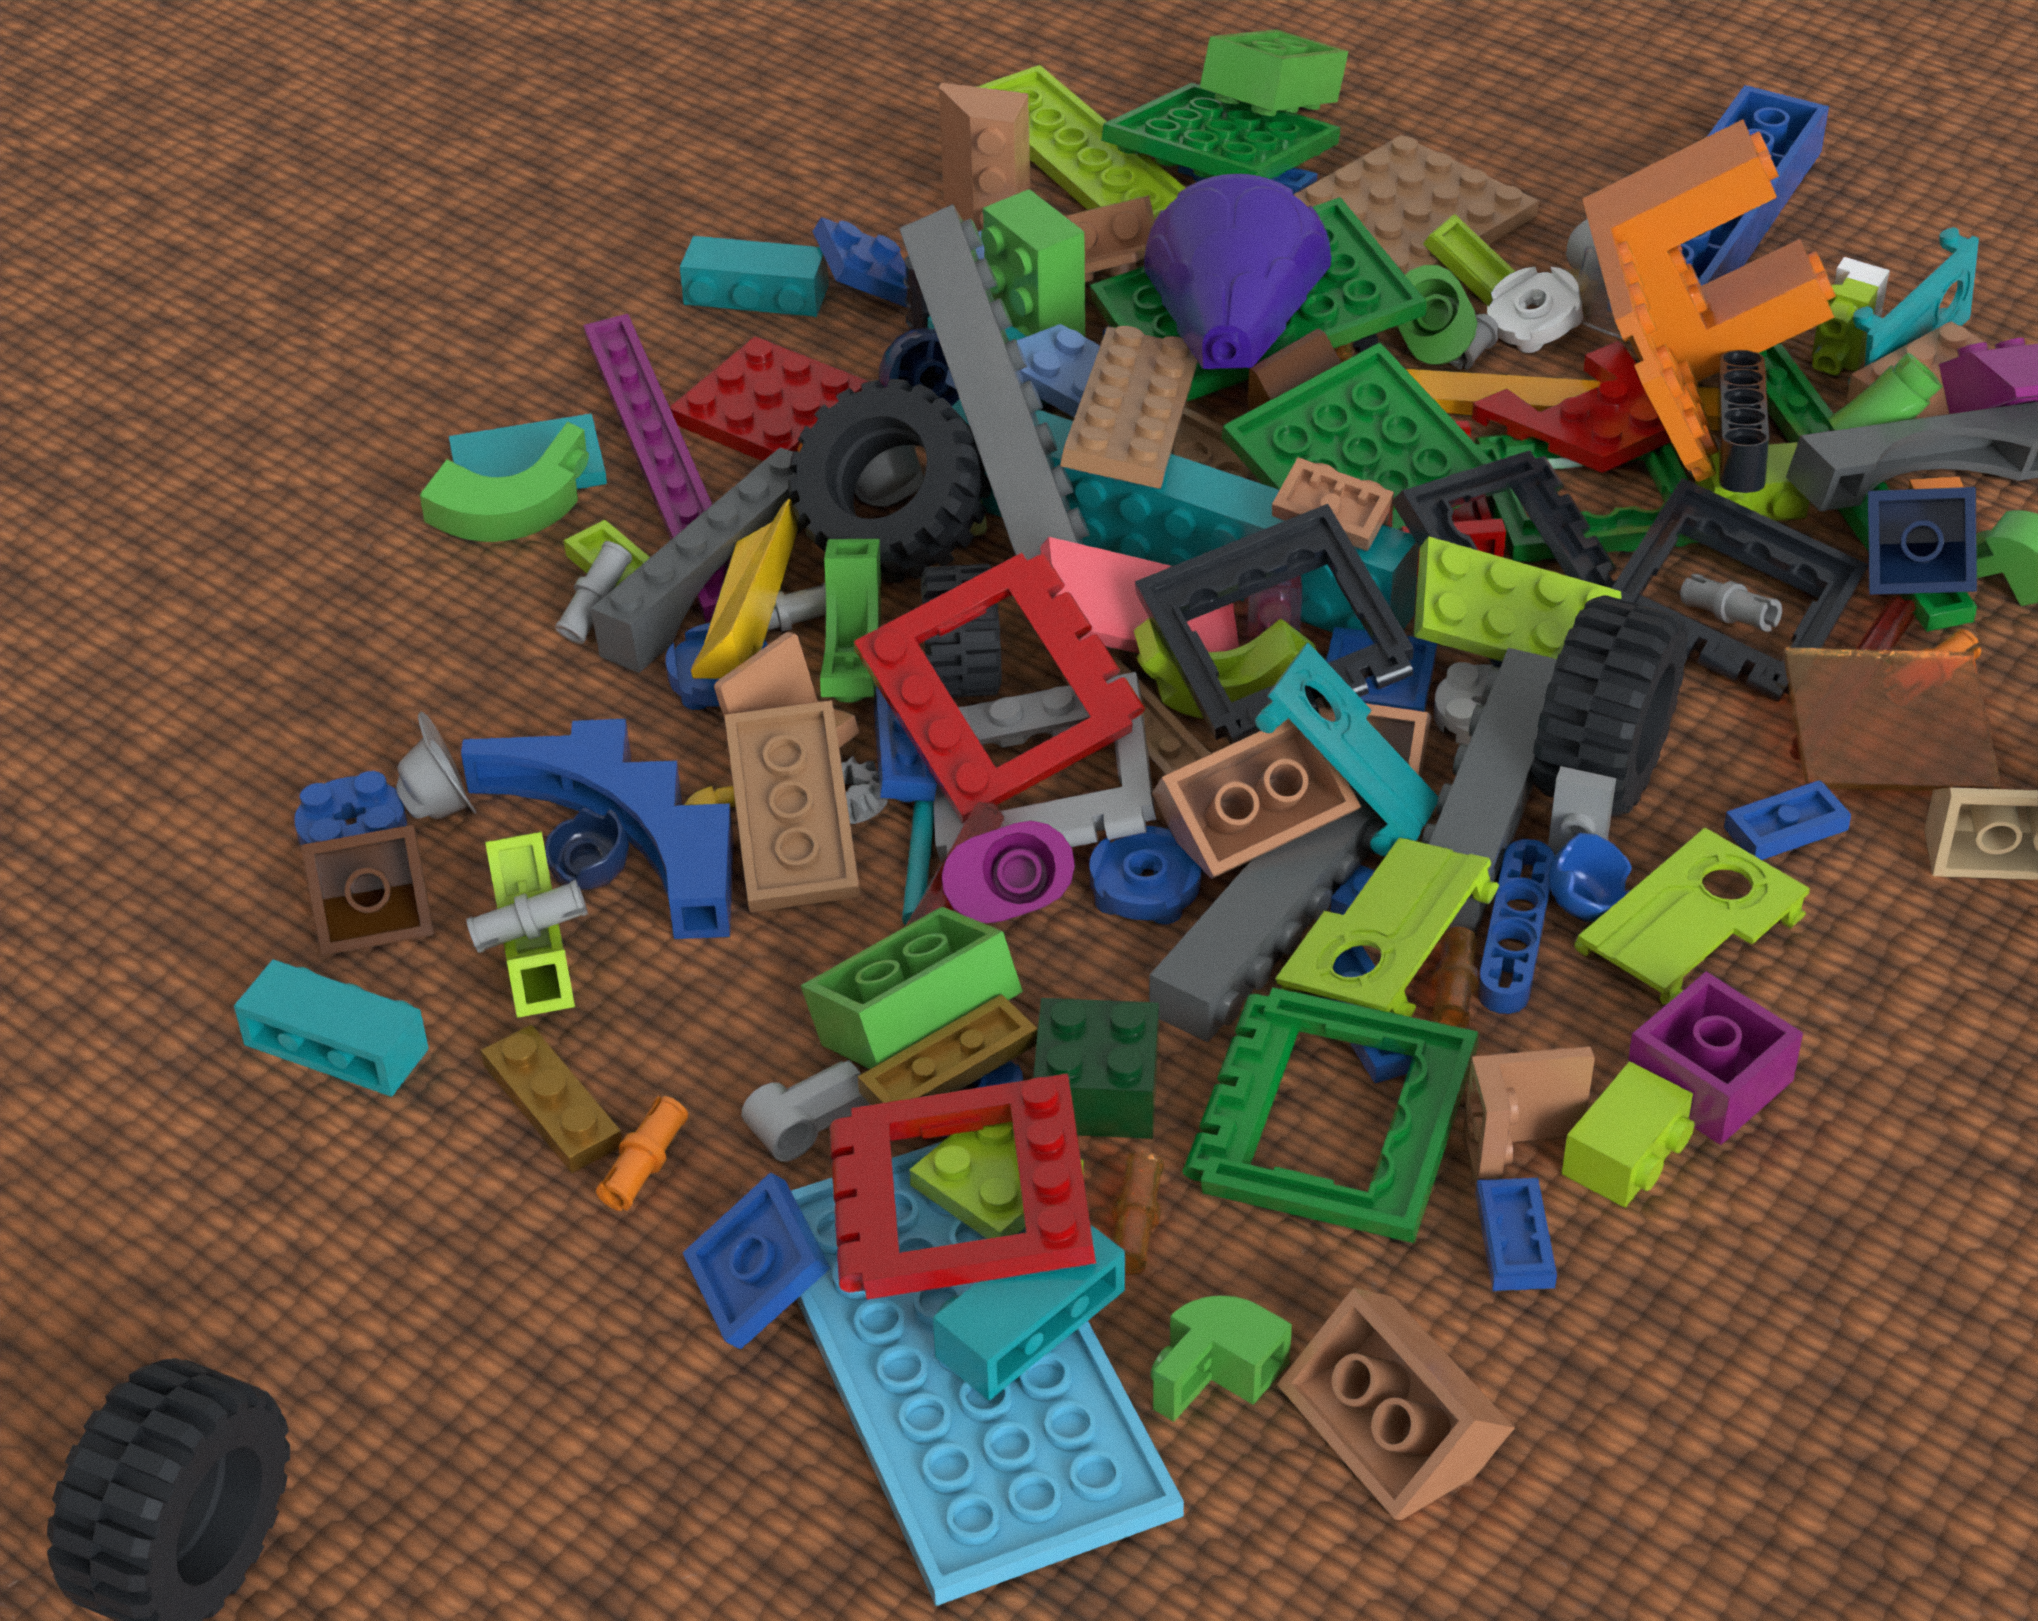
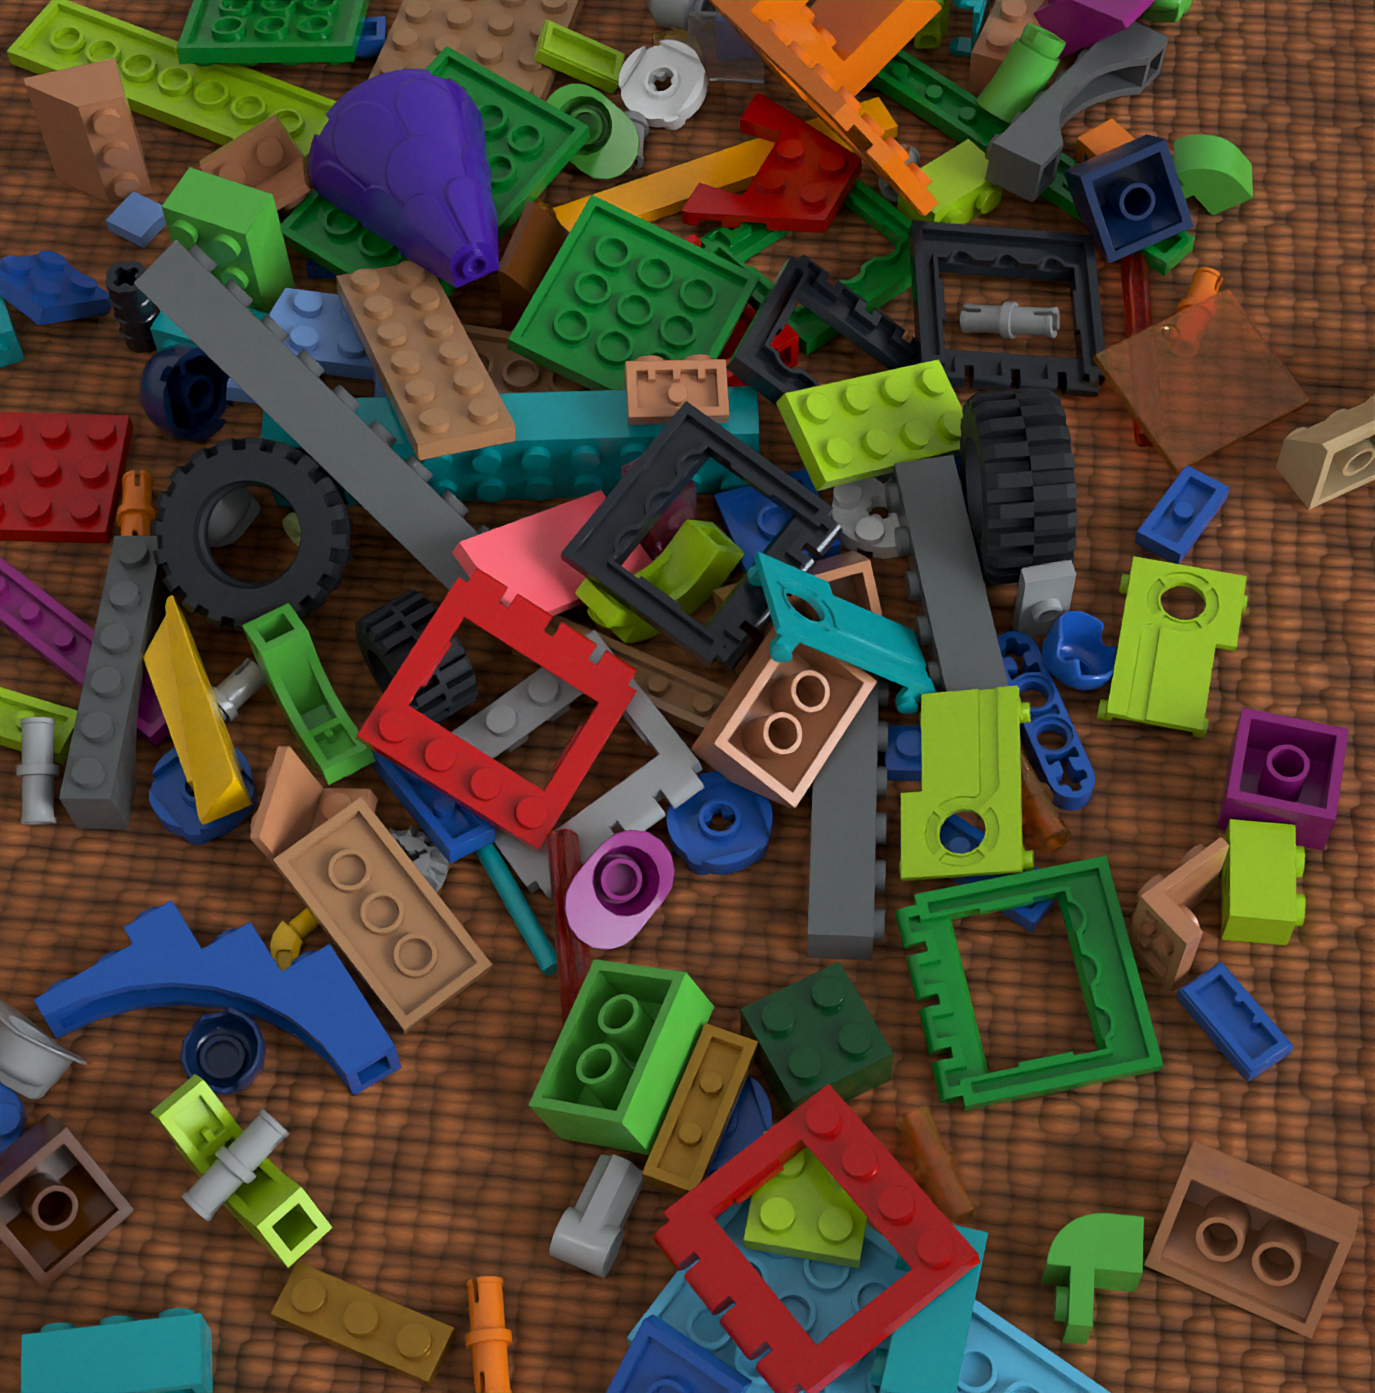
camera: 30 degrees left, 15 degrees up
(1742, 421) = (927, 138): black beam -> none

